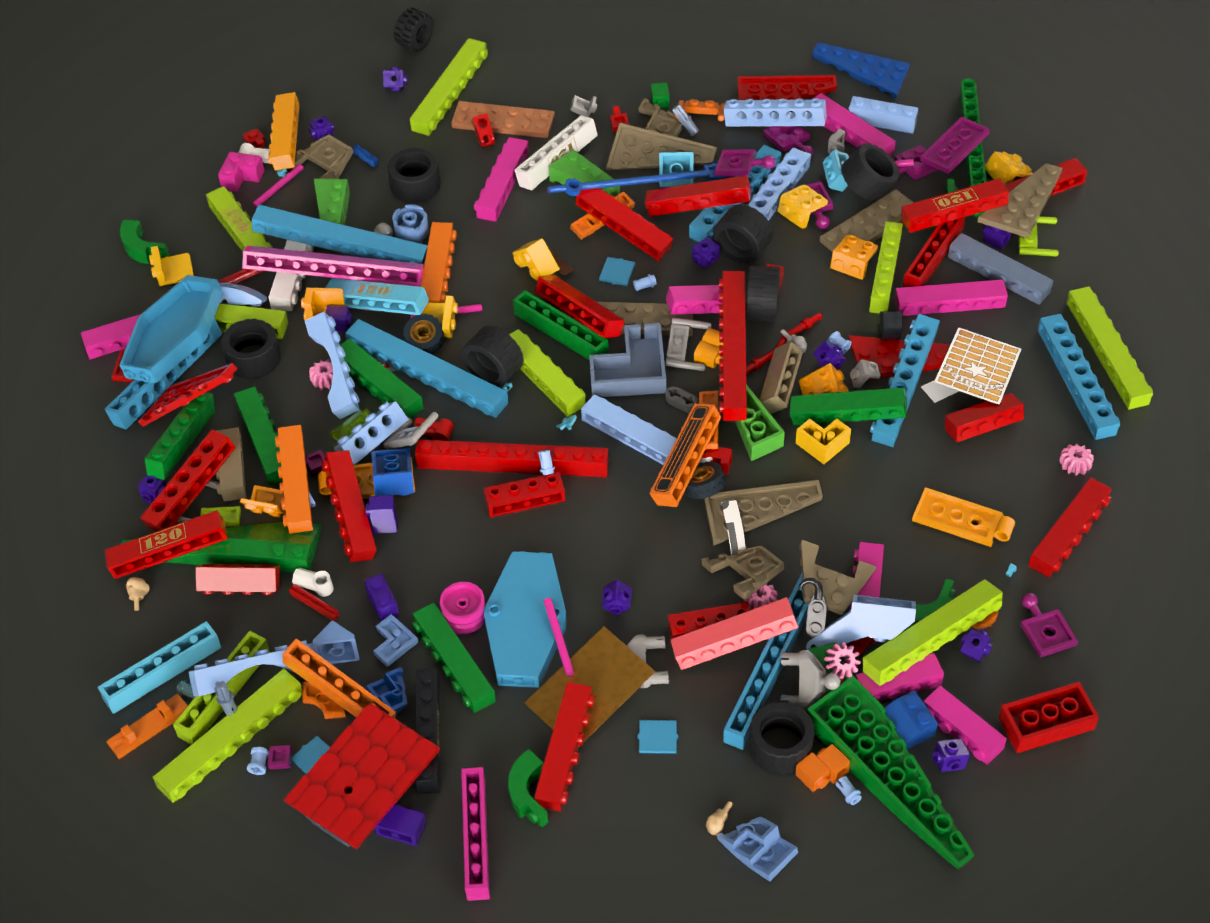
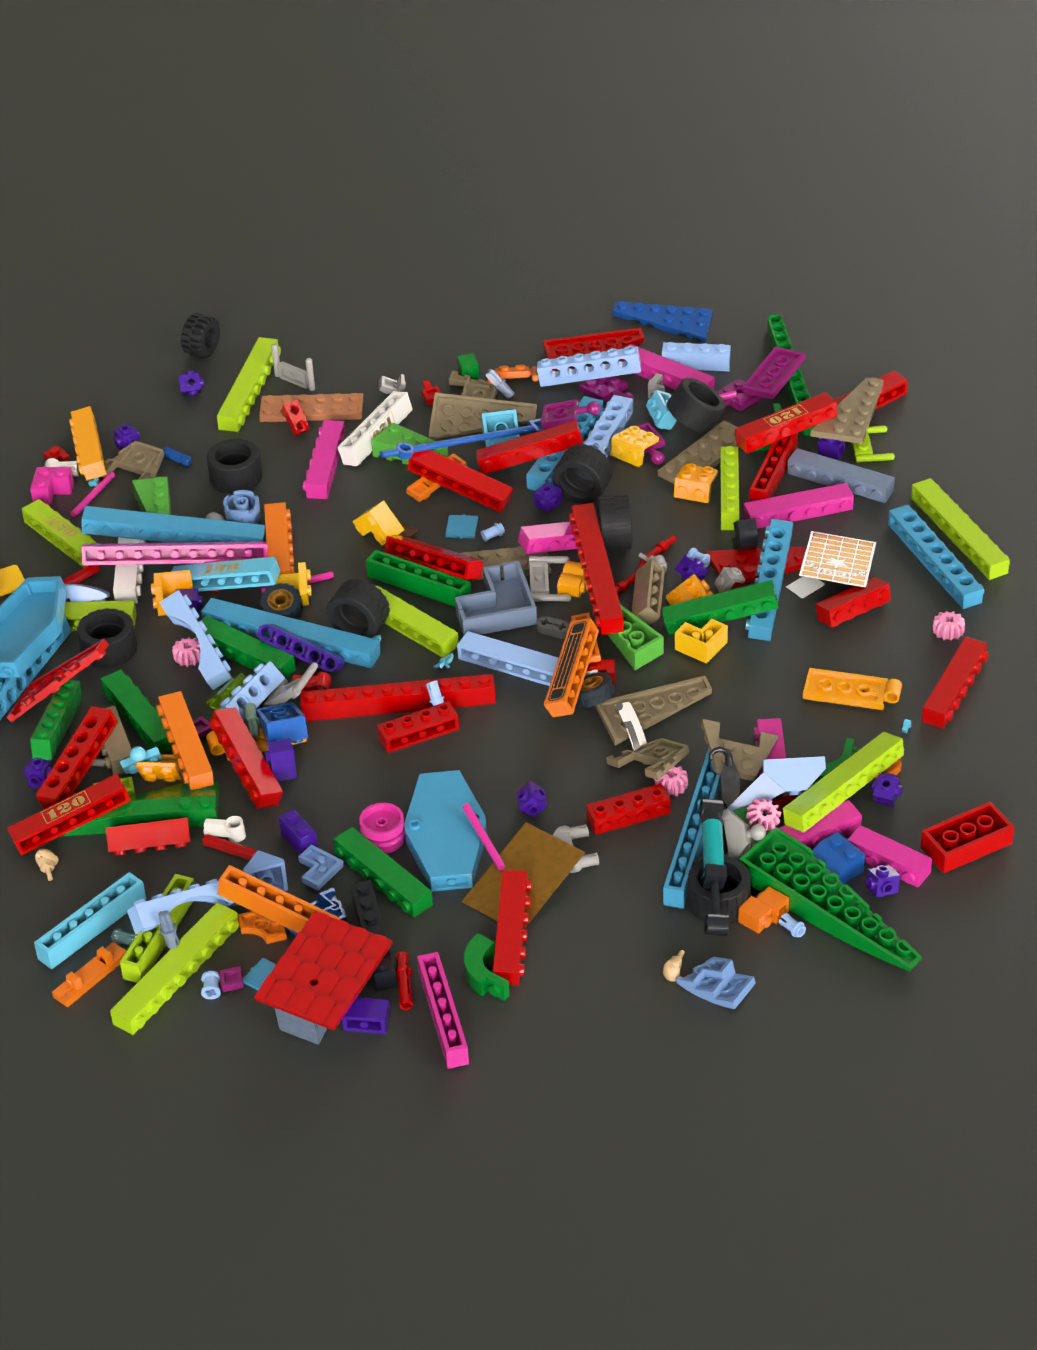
camera: 10 degrees left, 10 degrees down
(245, 491) = (138, 754): none -> medium azure plate
(364, 464) = (251, 719): none -> sand green axle
(437, 392) = (292, 647): none -> dark purple beam
(447, 780) = (403, 973): none -> red pin
(492, 81) = (291, 373): none -> light grey plate
(657, 736) = (599, 910): dark azure piece -> none
(734, 633) = (654, 809): coral brick -> none
(778, 722) = (714, 871): none -> black piece
(1006, 167) = (831, 385): yellow bracket -> none
(1051, 621) = (954, 762): magenta plate -> none

